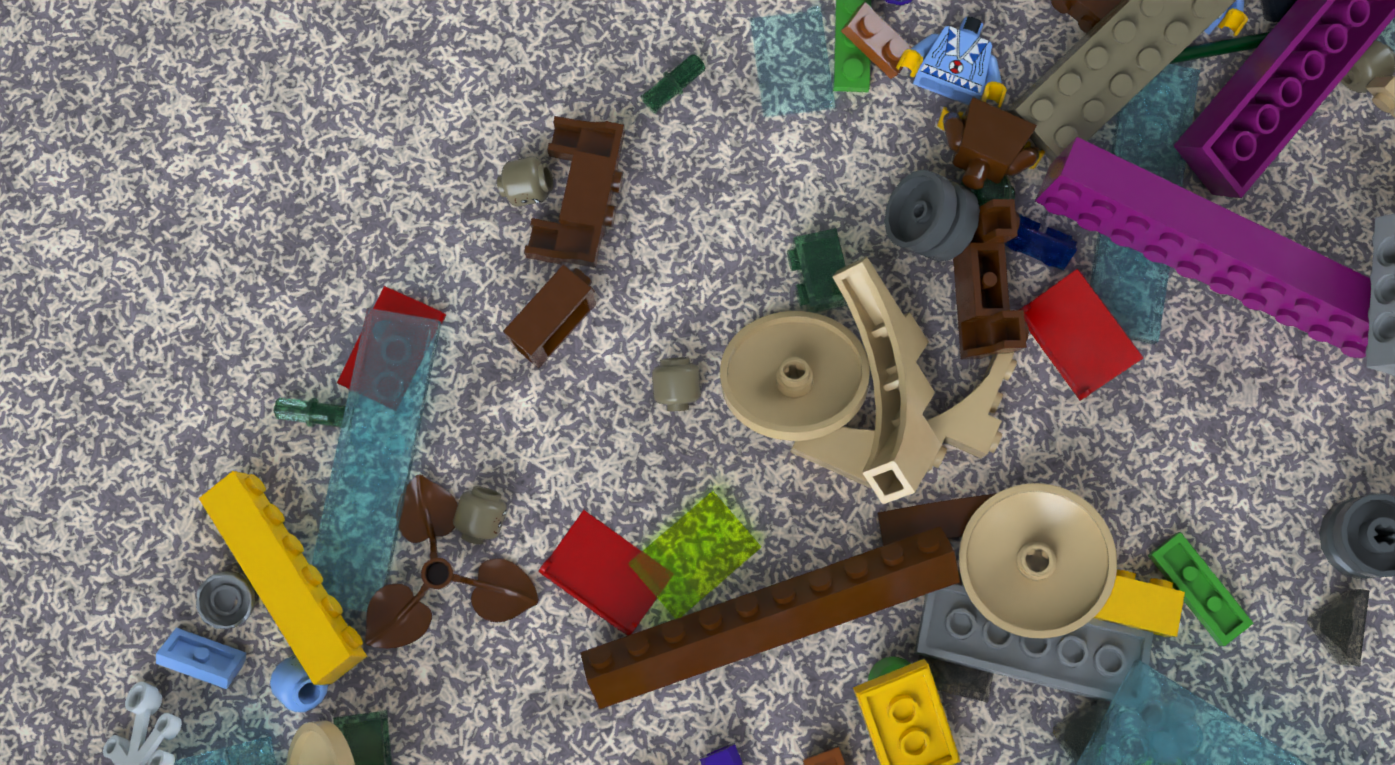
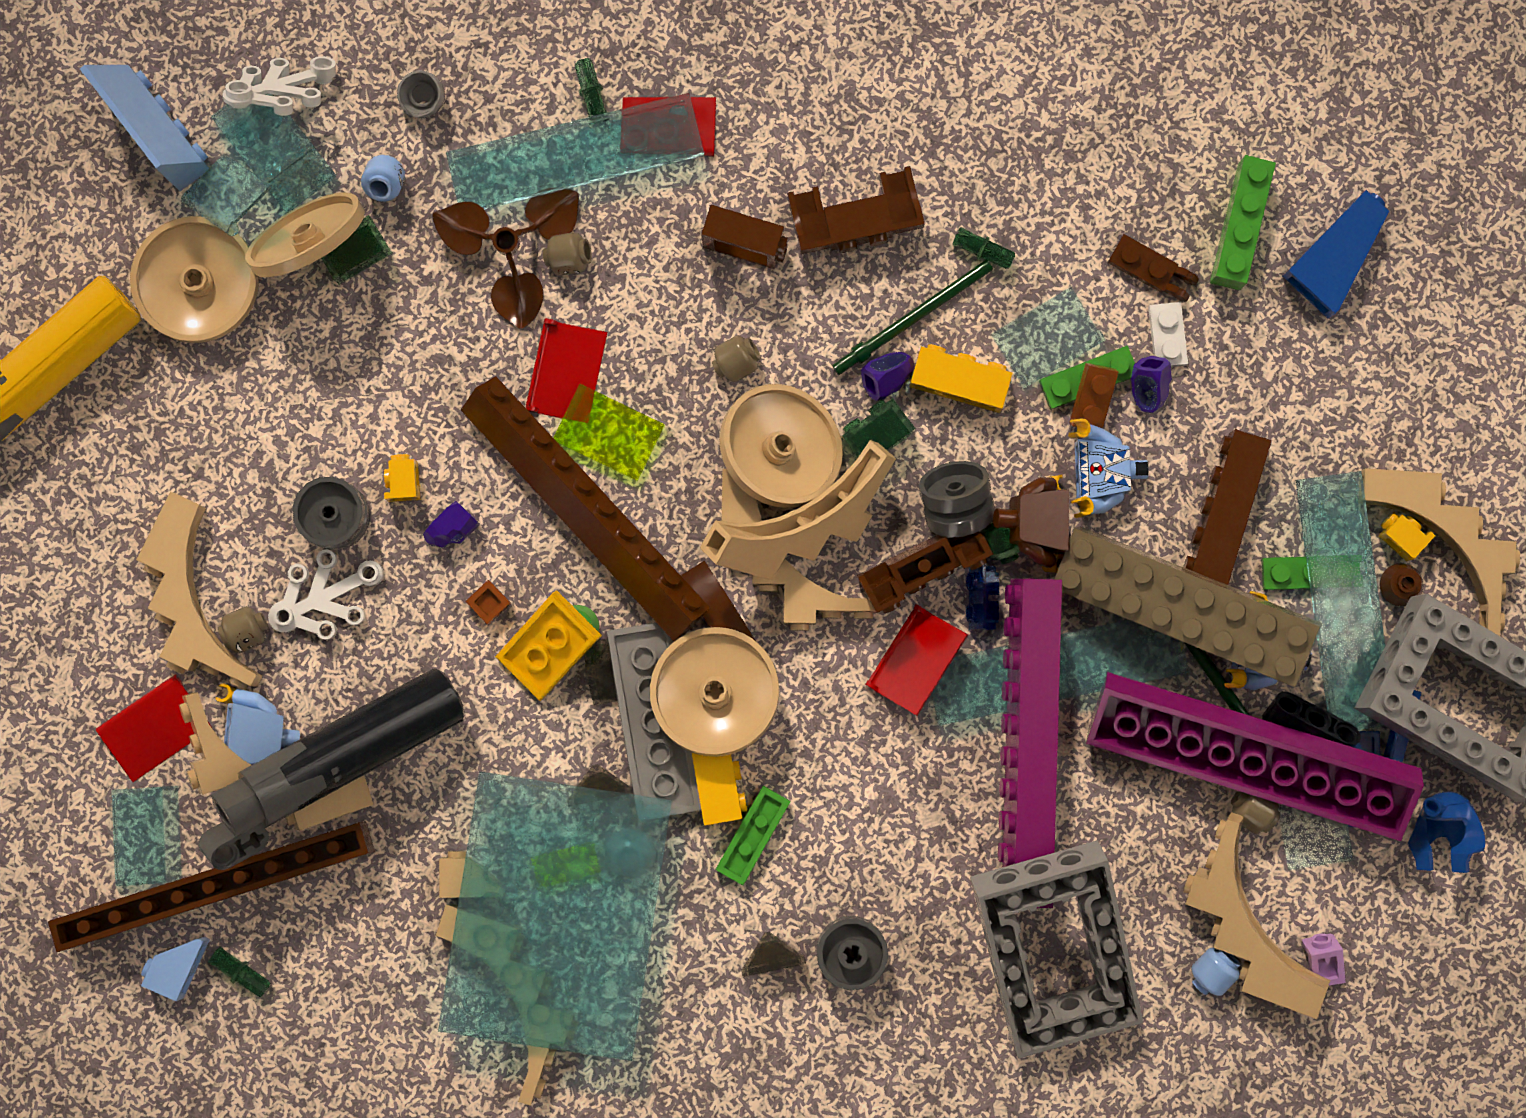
camera: 70 degrees right, 5 degrees up
(201, 658) = (370, 97): light blue plate -> none
(283, 577) = (455, 128): yellow brick -> none
(525, 181) = (847, 168): dark tan head -> none
(725, 250) = (862, 351): none -> dark green bar
(762, 236) = (886, 374): none -> dark purple rock
(799, 162) = (961, 378): none -> yellow brick

